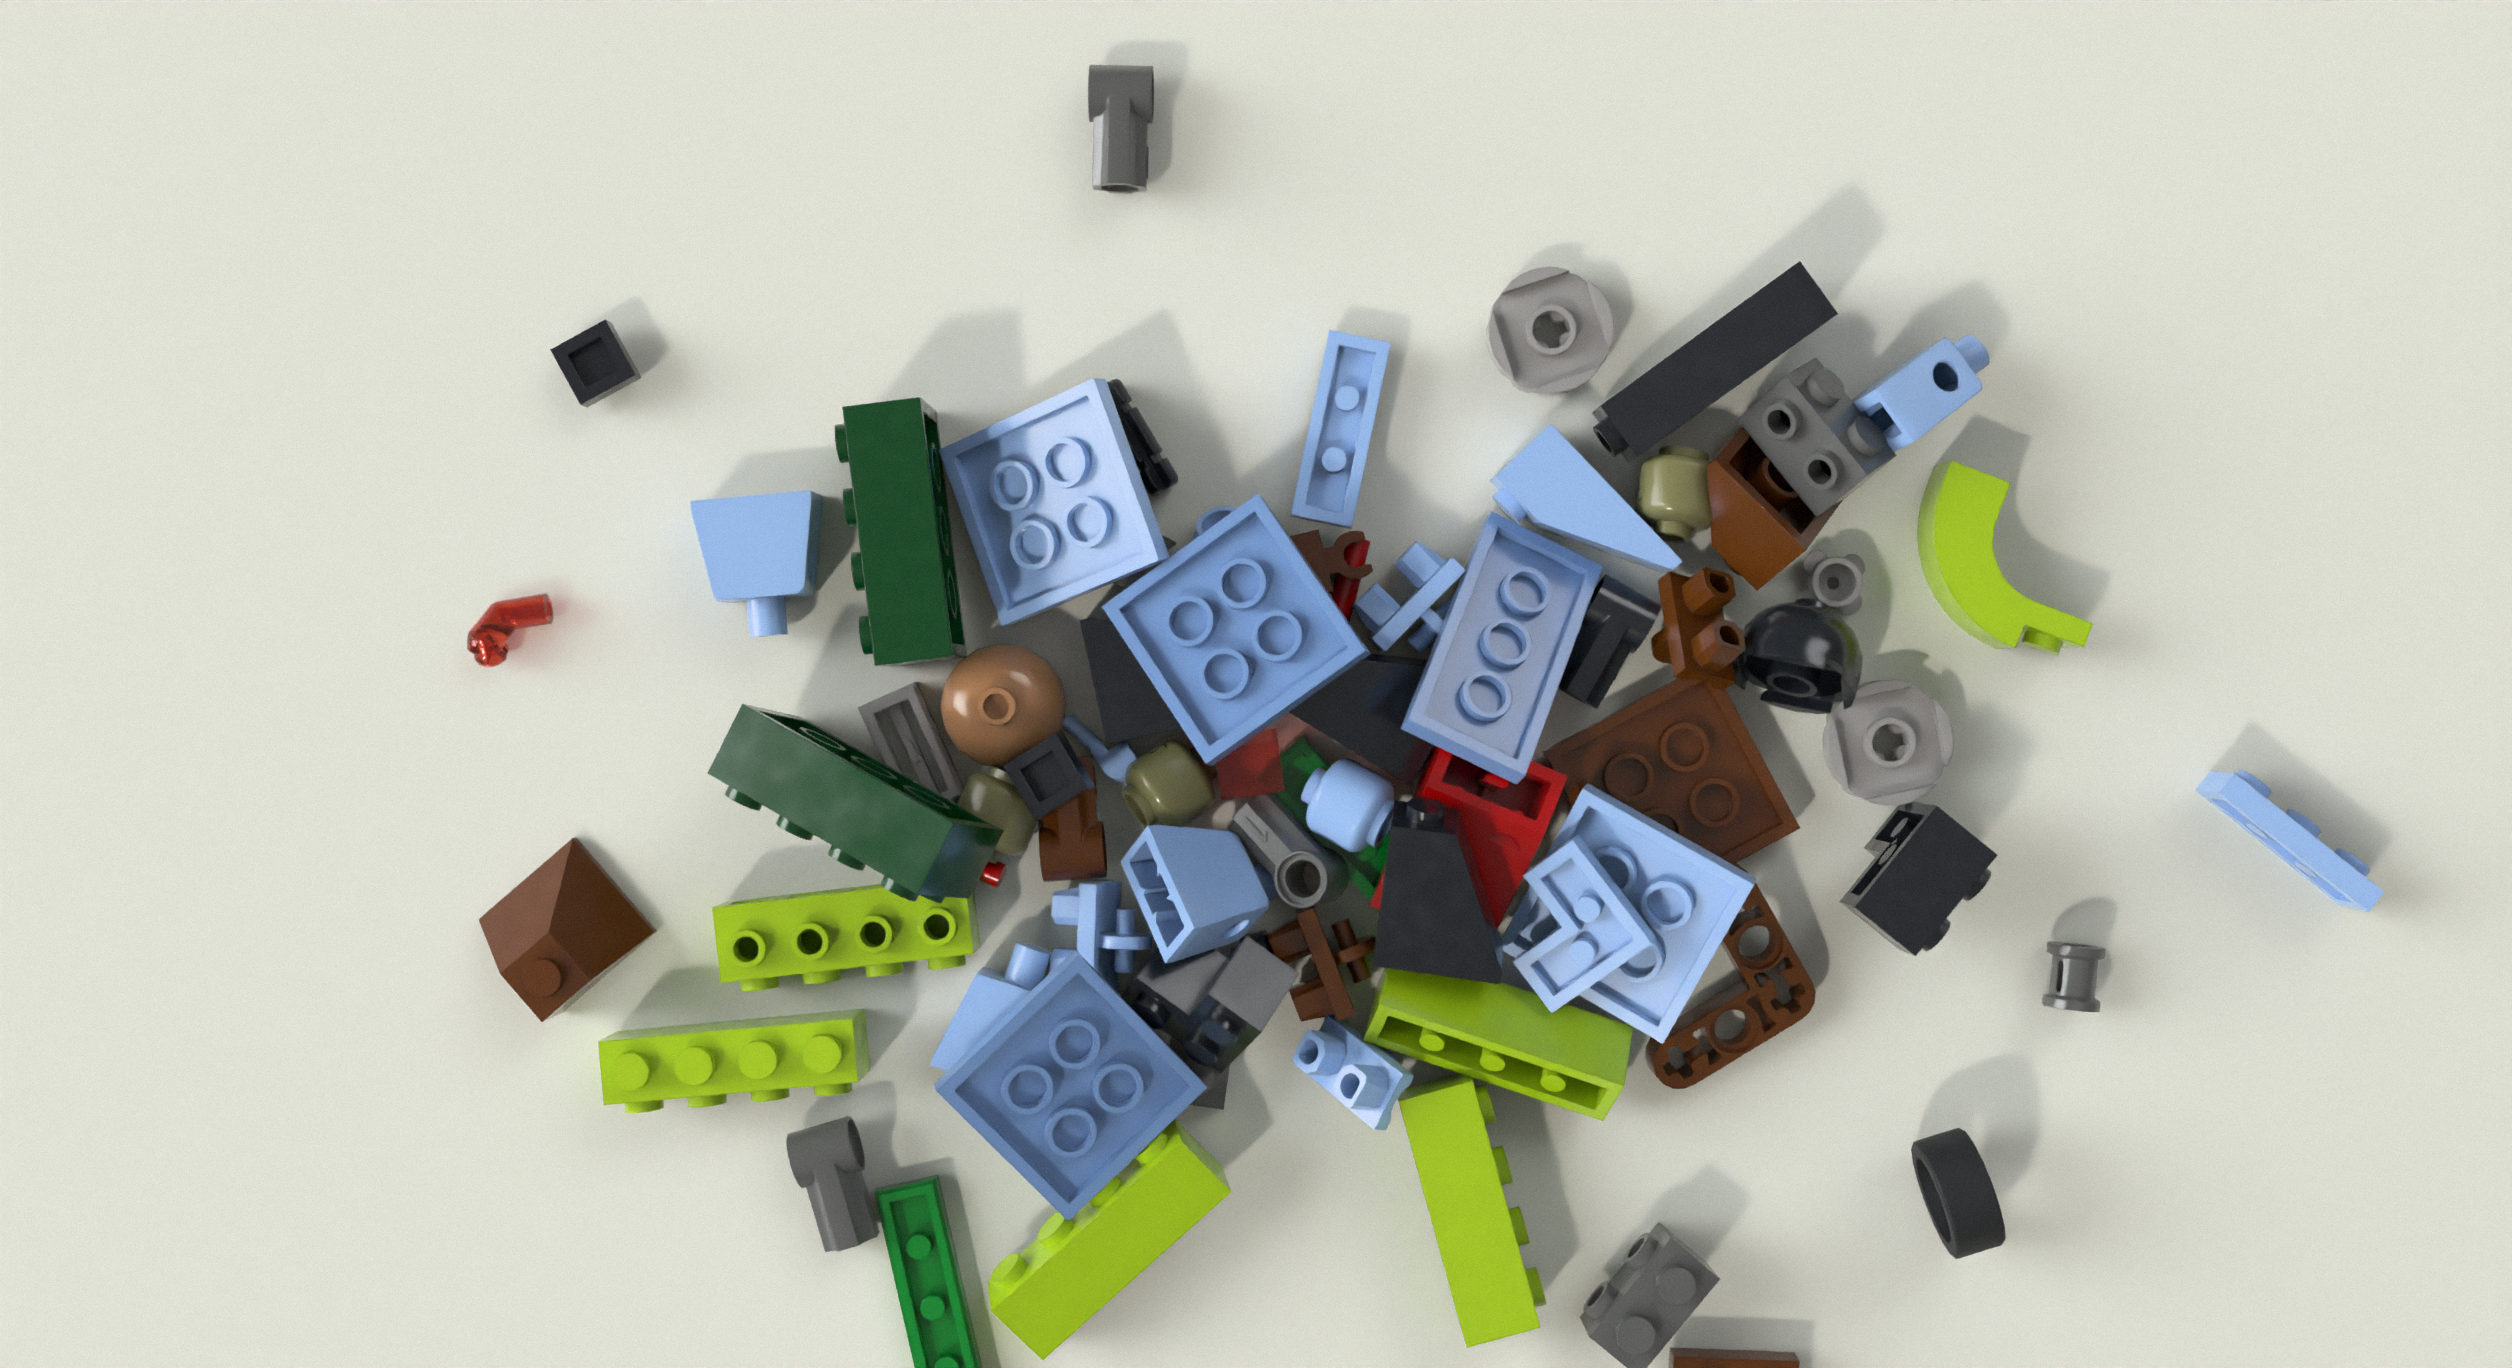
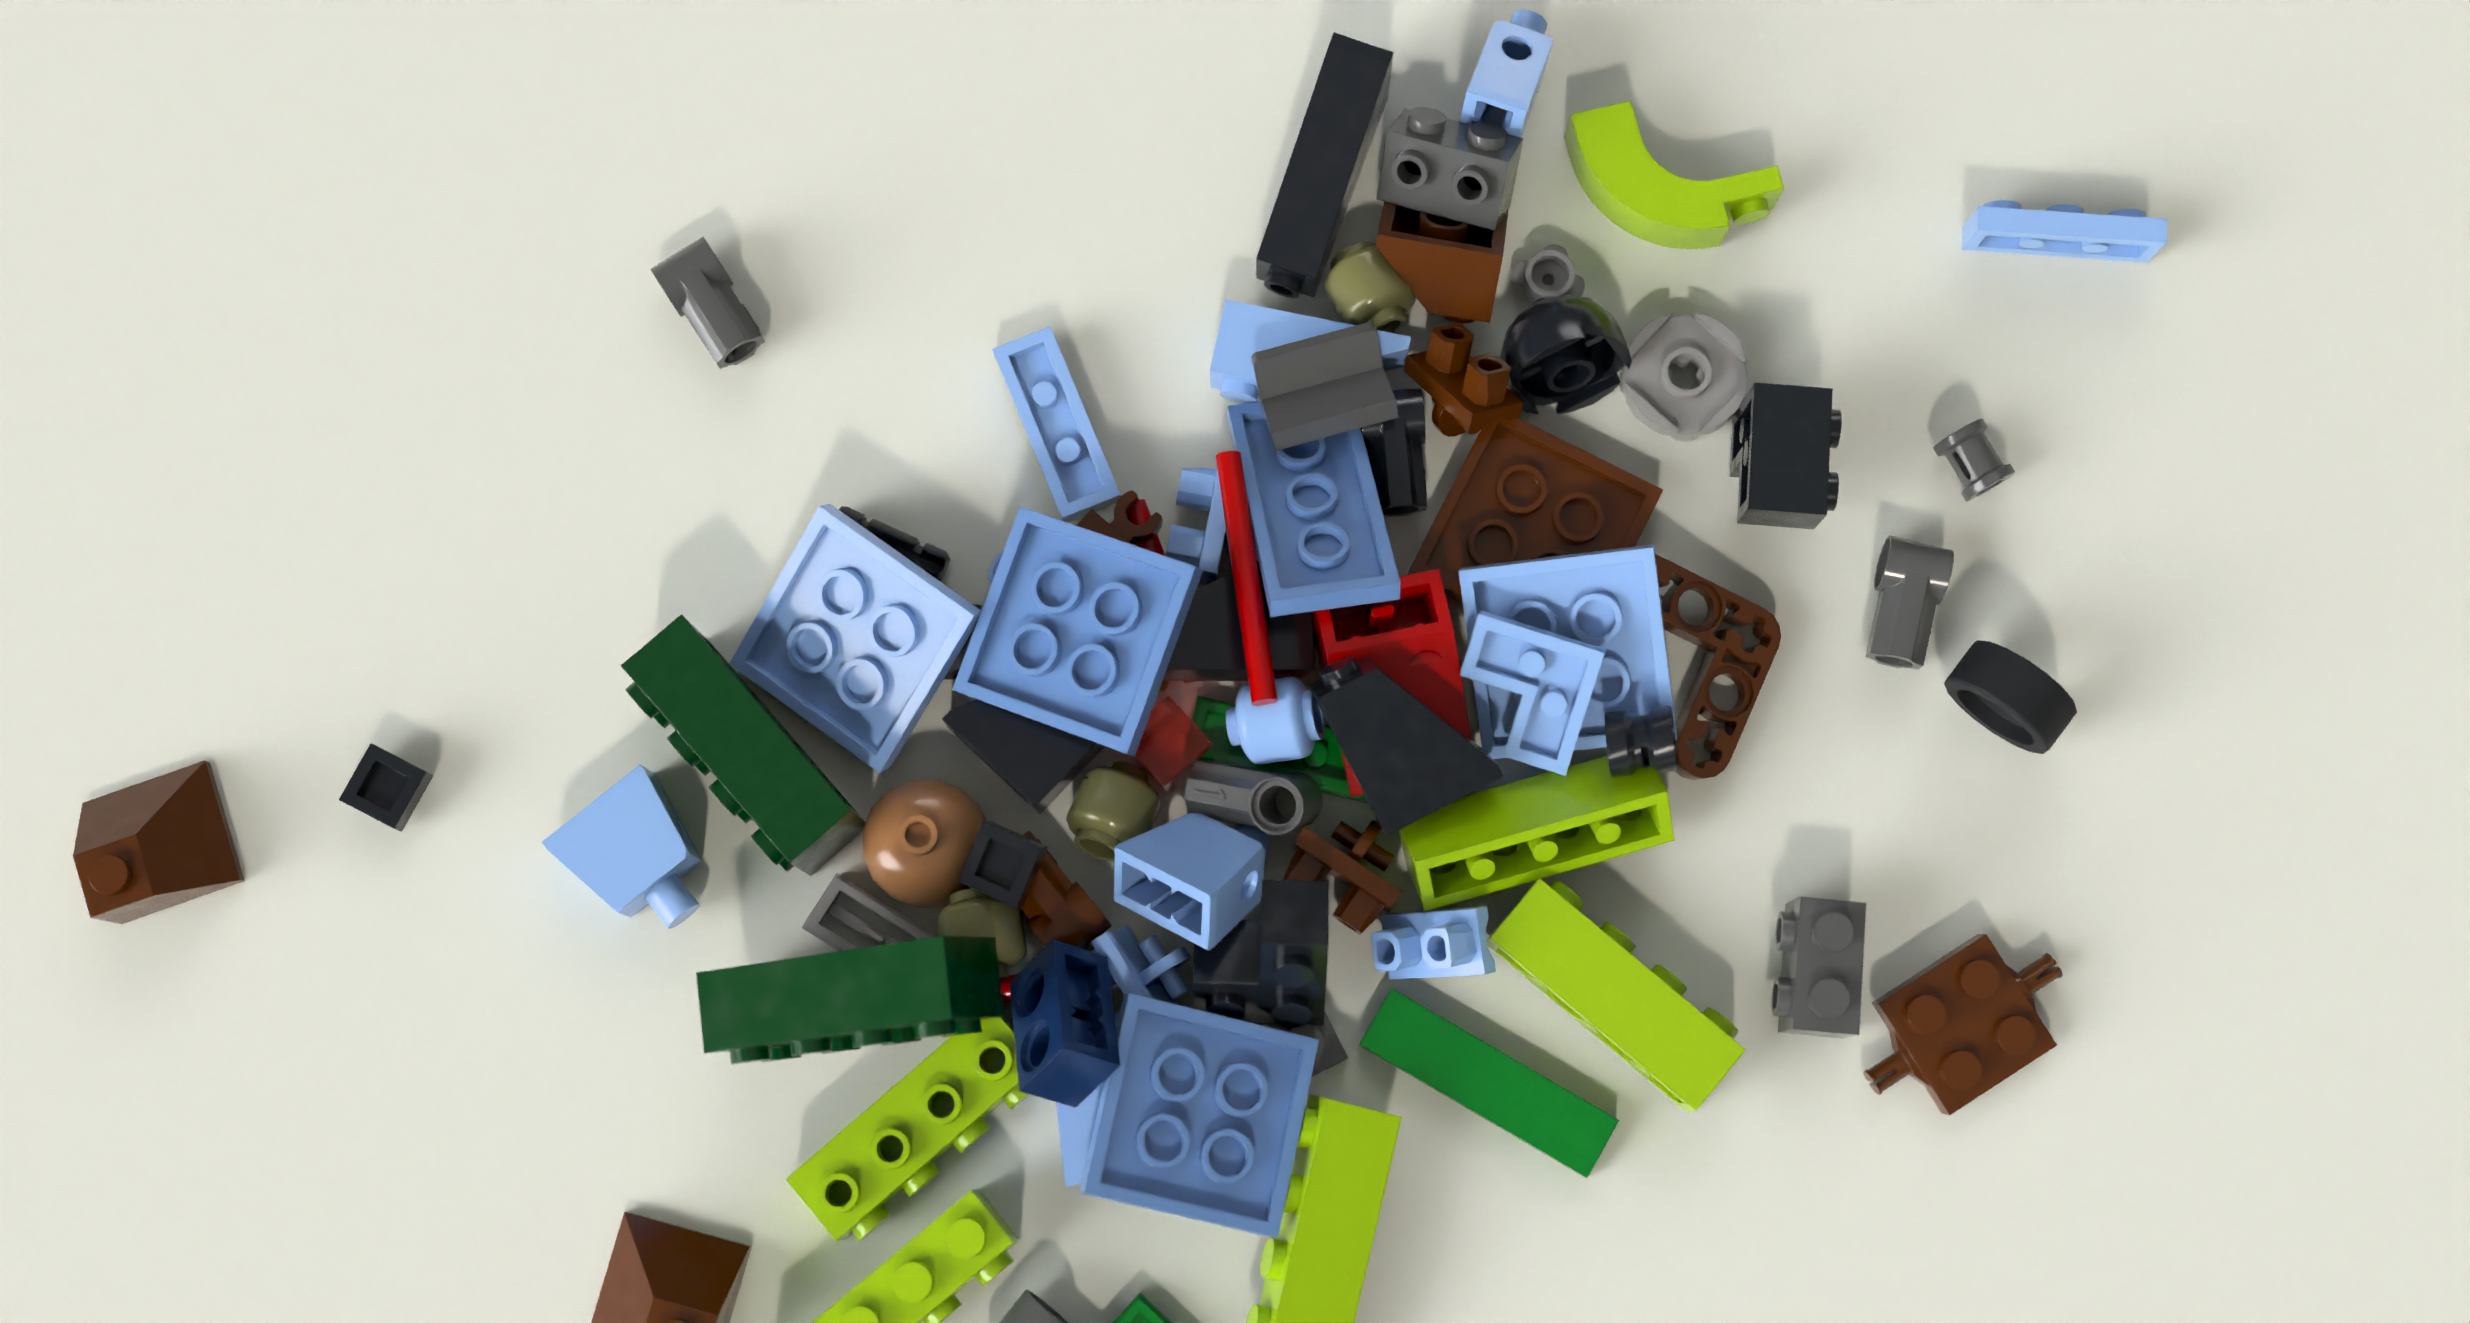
camera: 35 degrees left, 10 degrees down
(380, 282) = (155, 845): none -> reddish brown slope
(500, 620) = (440, 1065): clear red arm -> none
(1012, 940) = (1064, 1024): none -> dark blue brick
(1112, 761) = (1051, 826): light blue hand -> none
(1321, 1202) = (1489, 1083): none -> green tile
(1404, 677) = (1246, 578): none -> red bar
(1566, 299) = (1169, 200): light grey plate -> none
(1579, 557) = (1323, 386): none -> dark grey panel
(1631, 1030) = (1641, 741): none -> black wheel
(1946, 1042) = (1910, 585): none -> dark grey piece

